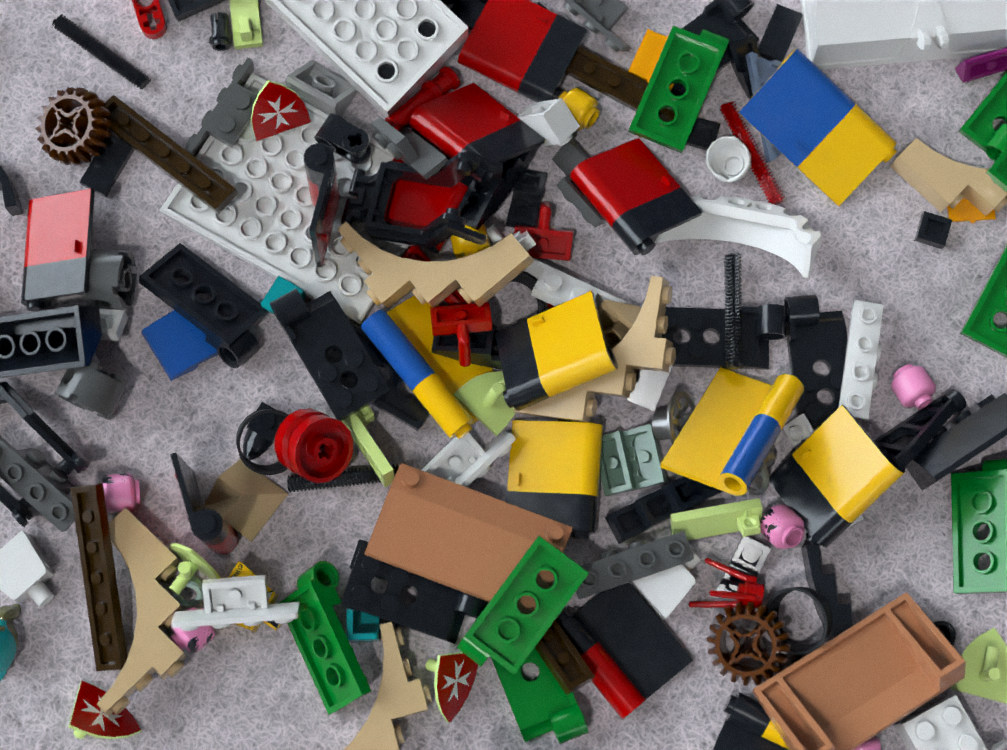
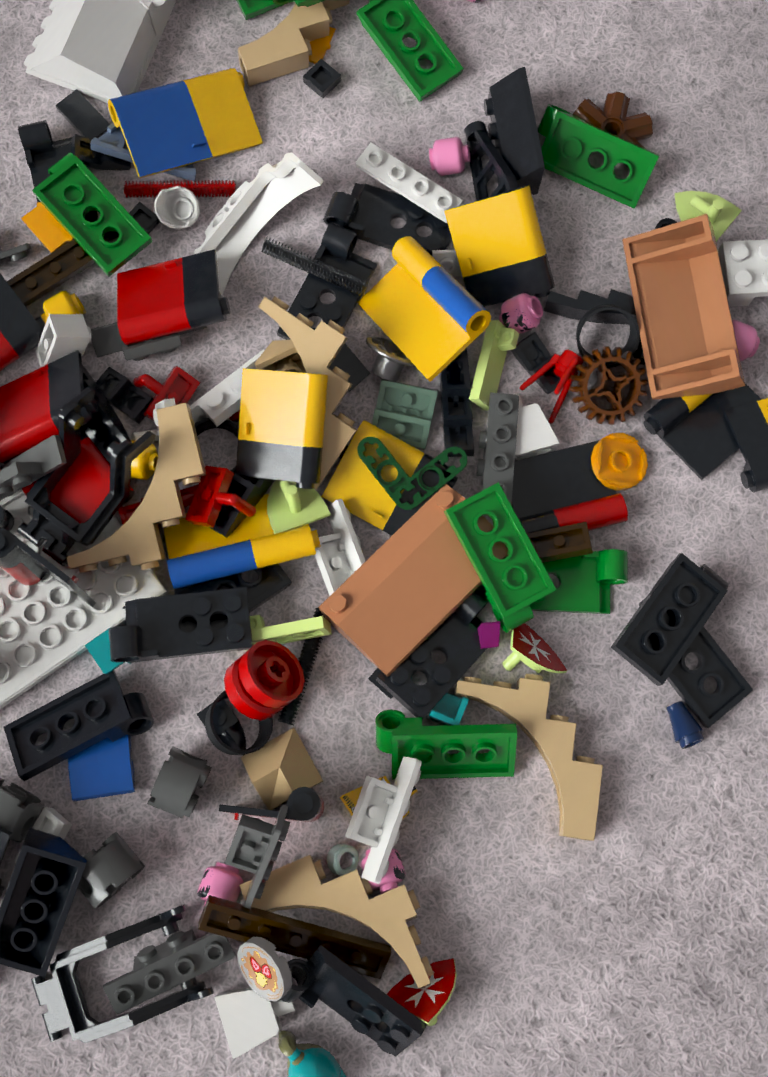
camera: 65 degrees left, 0 degrees up
(57, 561) = (264, 969): none -> light grey tile
(63, 669) = (355, 999): none -> black hinge
(154, 503) = (255, 847): none -> dark grey bracket
(187, 568) = (320, 839): yellowish green shield -> none
(192, 413) = (178, 783): none -> dark grey brick
(449, 633) = (489, 634): none -> magenta piece
(559, 487) = (403, 481): none -> dark green beam
(679, 687) = (619, 461): none -> light orange tile

